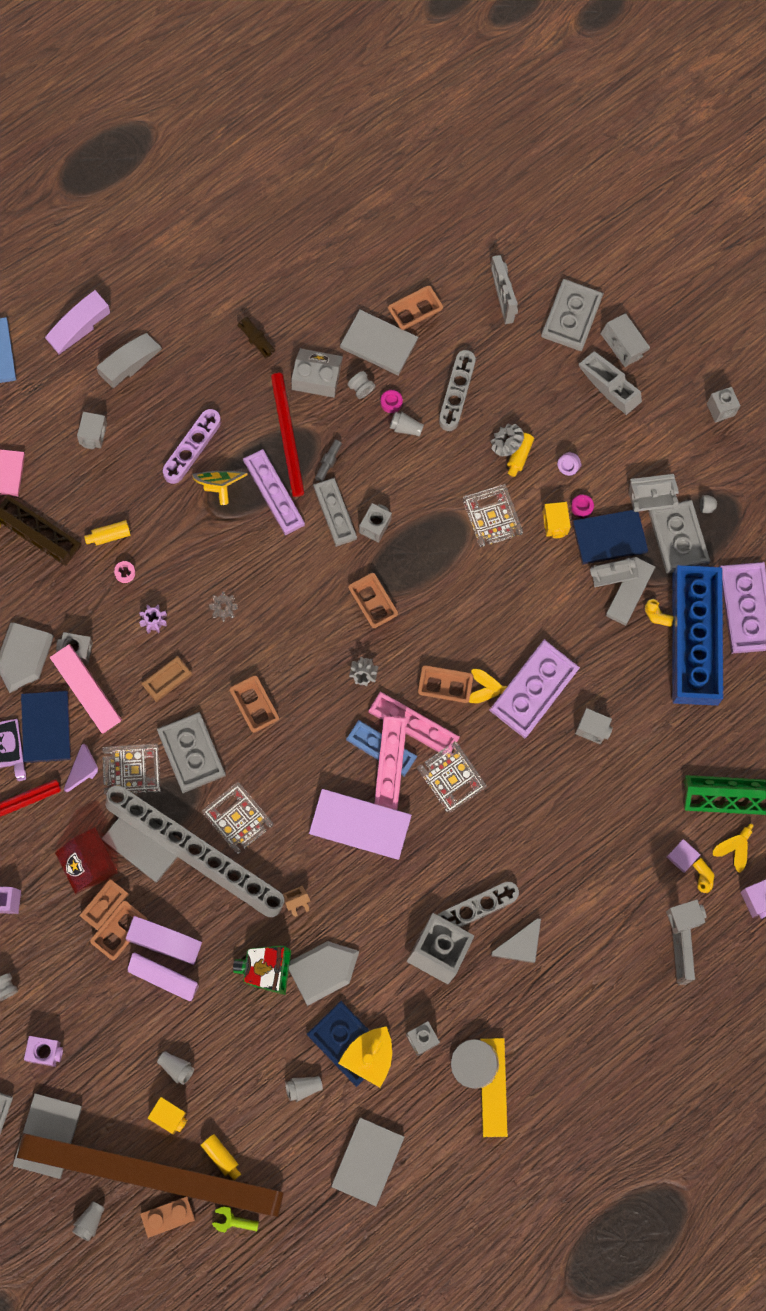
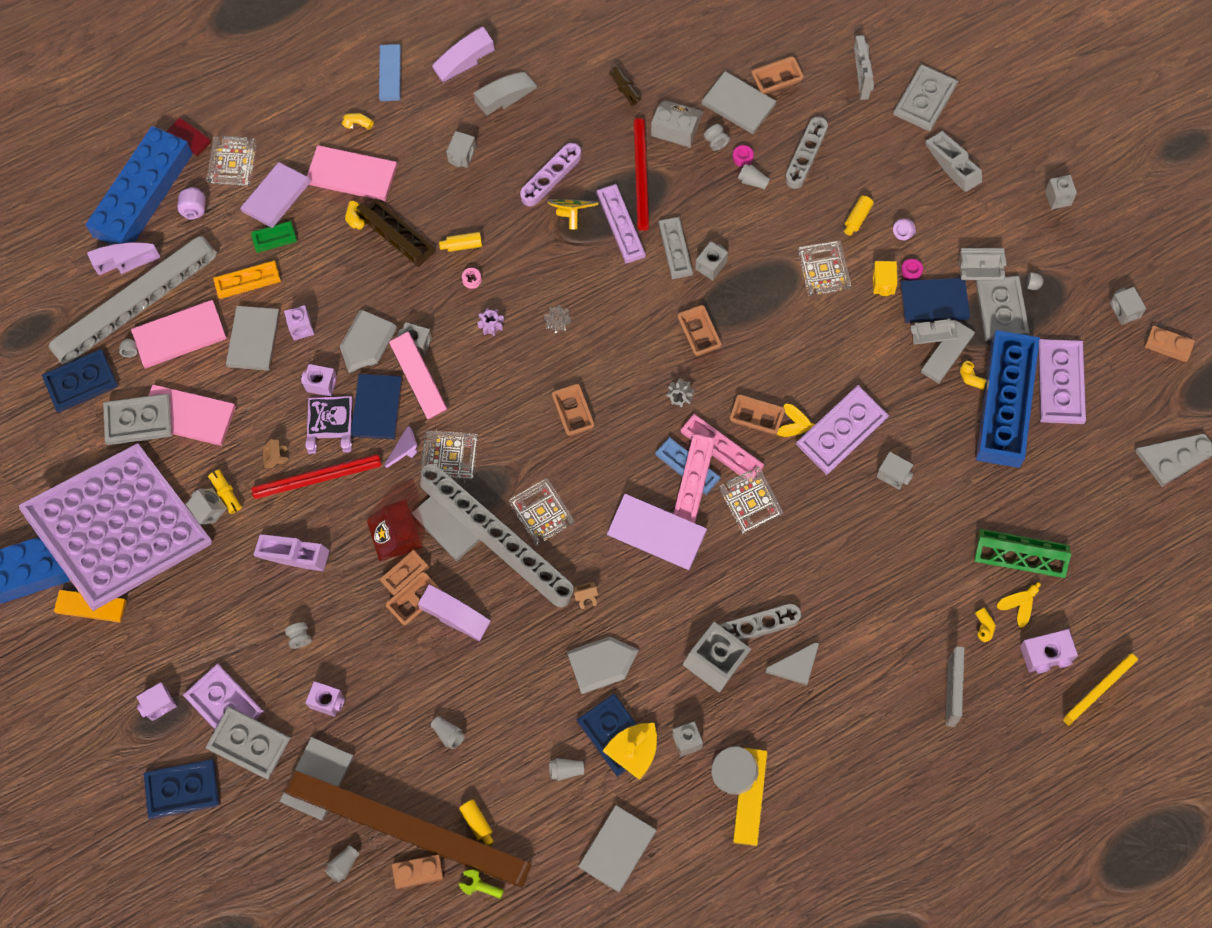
camera: 20 degrees right, 5 degrees down
(162, 977) = (448, 647): lavender slope -> none
(166, 679) = (495, 378): medium nougat tile -> none
(168, 1116) = (432, 776): yellow brick -> none
(191, 752) = (507, 447): light grey tile -> none
(265, 968) = (546, 652): torso -> none
(328, 460) = (676, 201): flat silver bar -> none
(512, 444) = (853, 199): light grey gear -> none
(624, 340) = (972, 124): light grey hinge -> none
(683, 856) = (967, 604): lavender tile -> none
(686, 916) = (960, 654): light grey brick -> none

